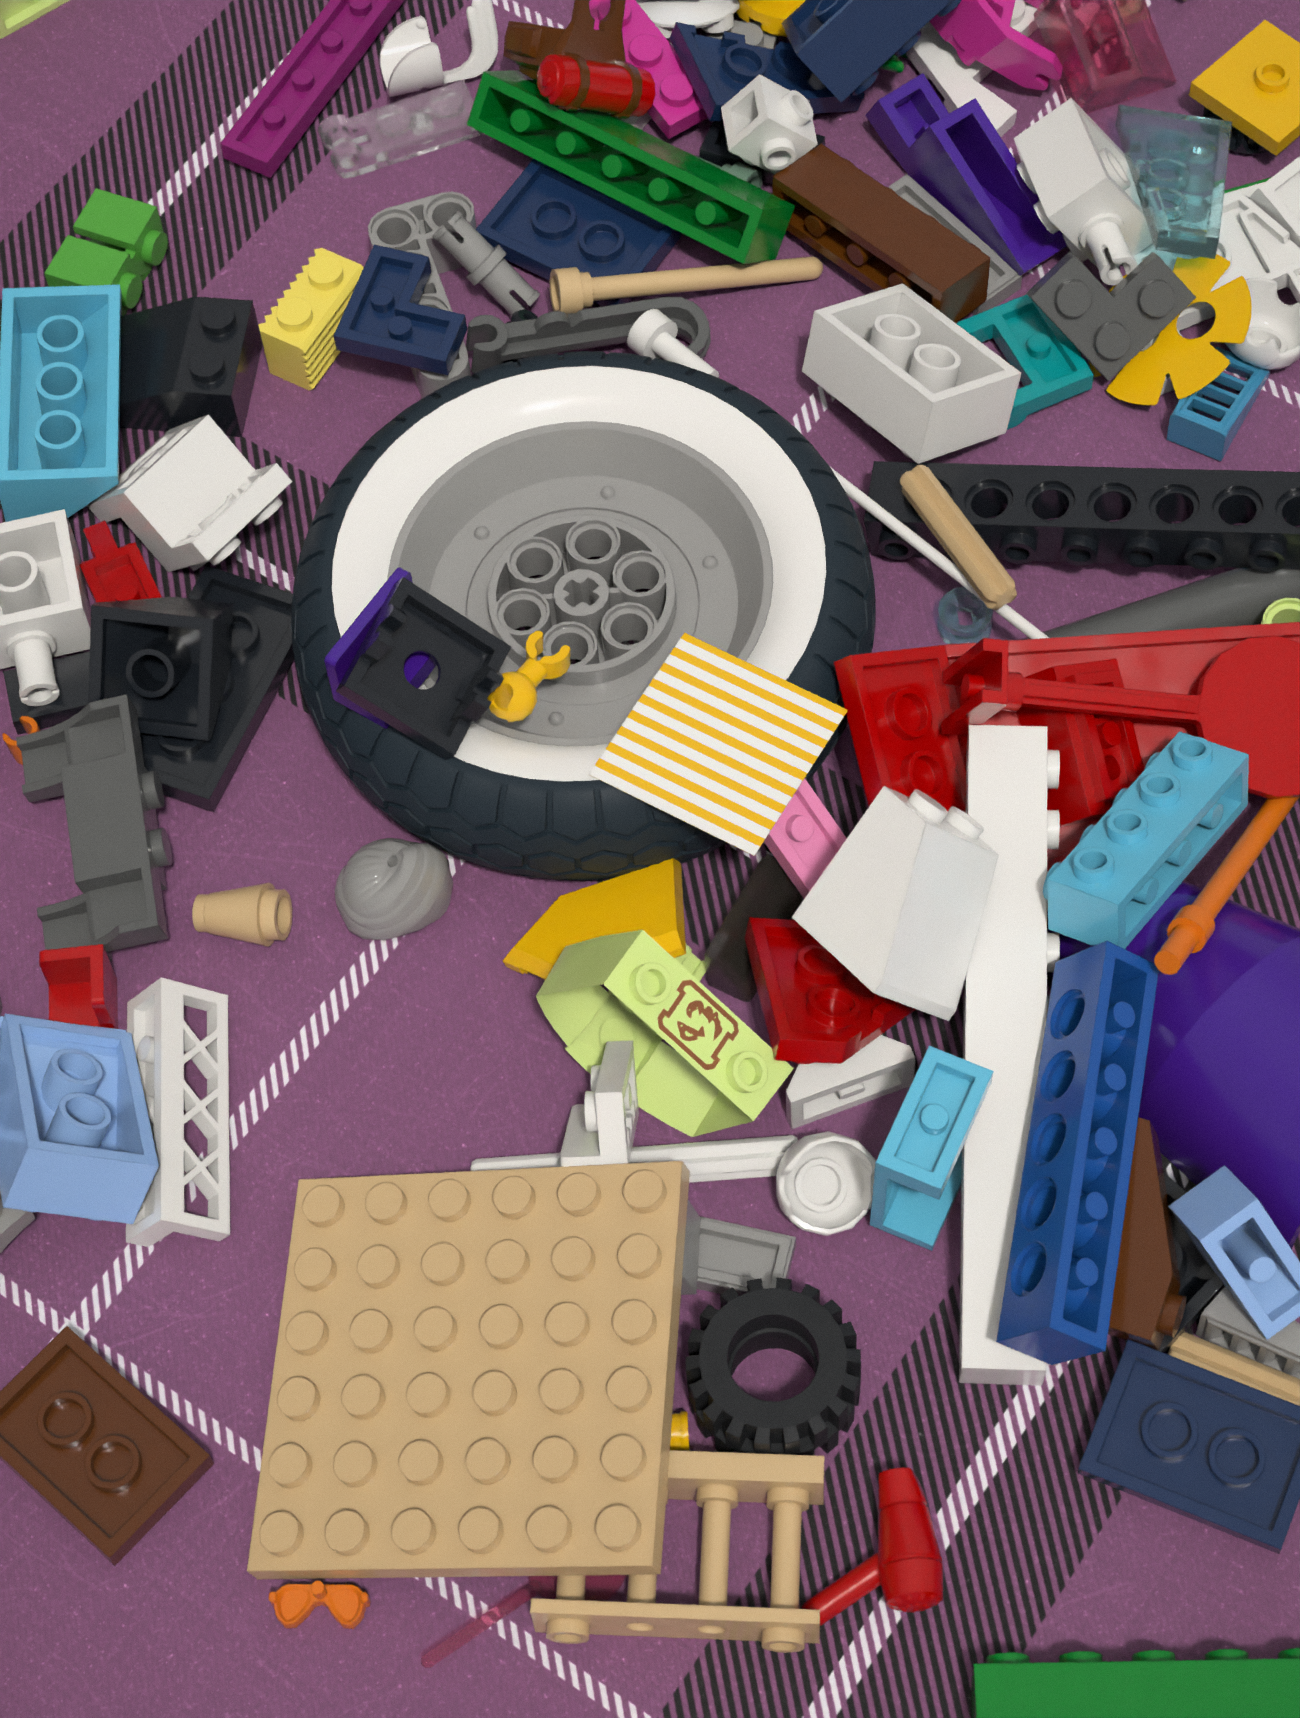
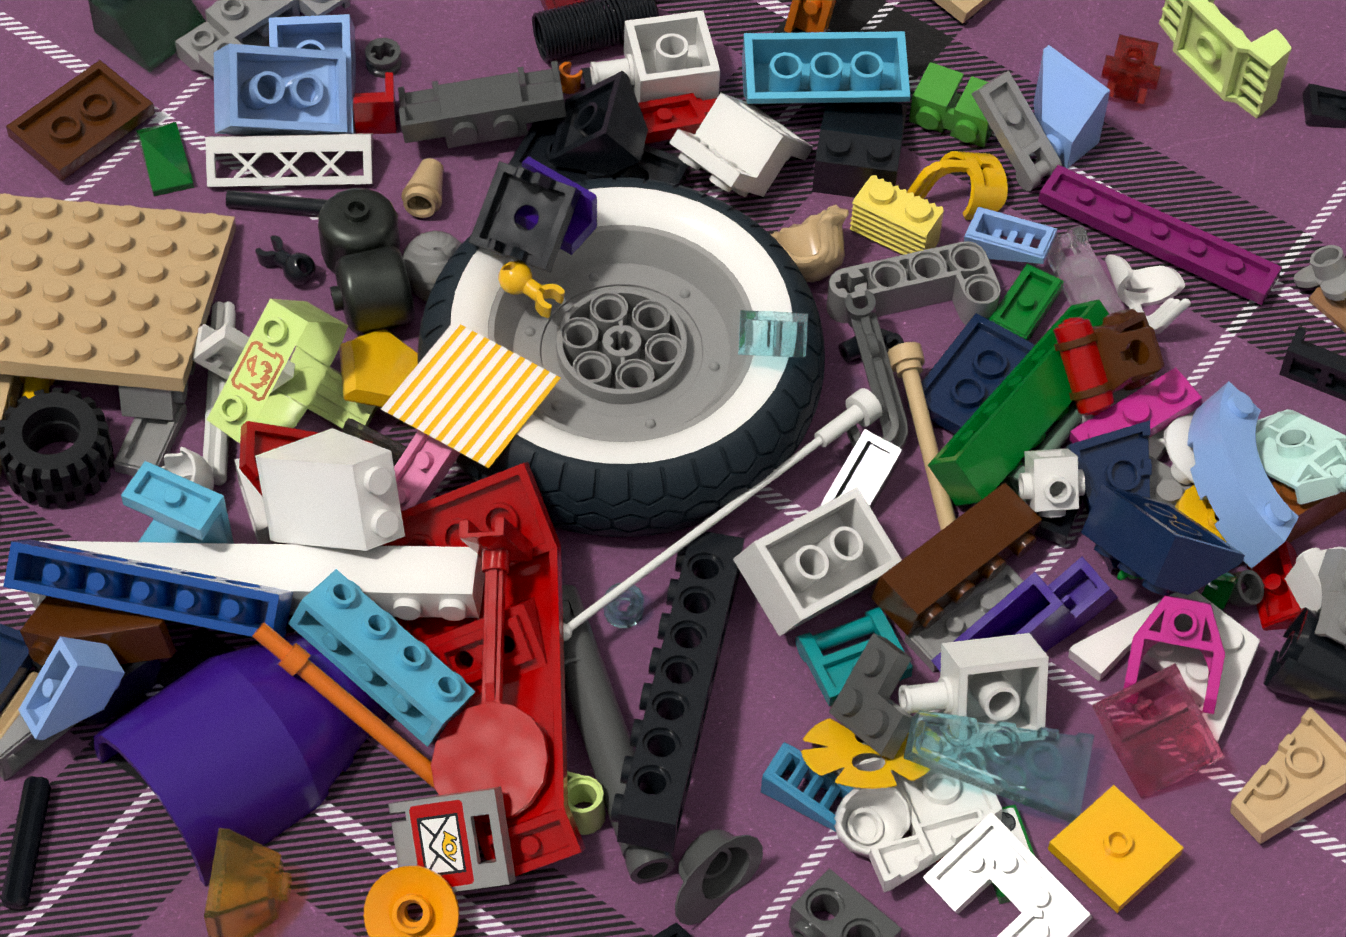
camera: 85 degrees right, 5 degrees down
(58, 60) = (1128, 77): none -> clear red brick
(131, 126) = (1069, 106): none -> light blue slope
(164, 1311) = (165, 159): none -> green slope
(171, 174) = (1017, 130): none -> light grey plate
(214, 226) = (987, 194): none -> yellow helmet
(269, 1084) = (274, 202): none -> black bar
(338, 230) = (997, 224): none -> light blue slope
(351, 983) = (356, 223): none -> pearl dark grey head
(354, 400) = (816, 243): none -> tan hair
(390, 324) = (876, 240): dark blue plate -> none
(395, 1083) = (296, 267): none -> black arm
(433, 171) = (1027, 301): none -> green plate
(463, 945) = (373, 290): none -> pearl dark grey head
(485, 264) = (938, 312): light grey pin -> none
(611, 372) = (773, 333): none -> clear light blue panel
(751, 346) = (867, 468): none -> tile
(958, 537) = (658, 572): tan axle -> none

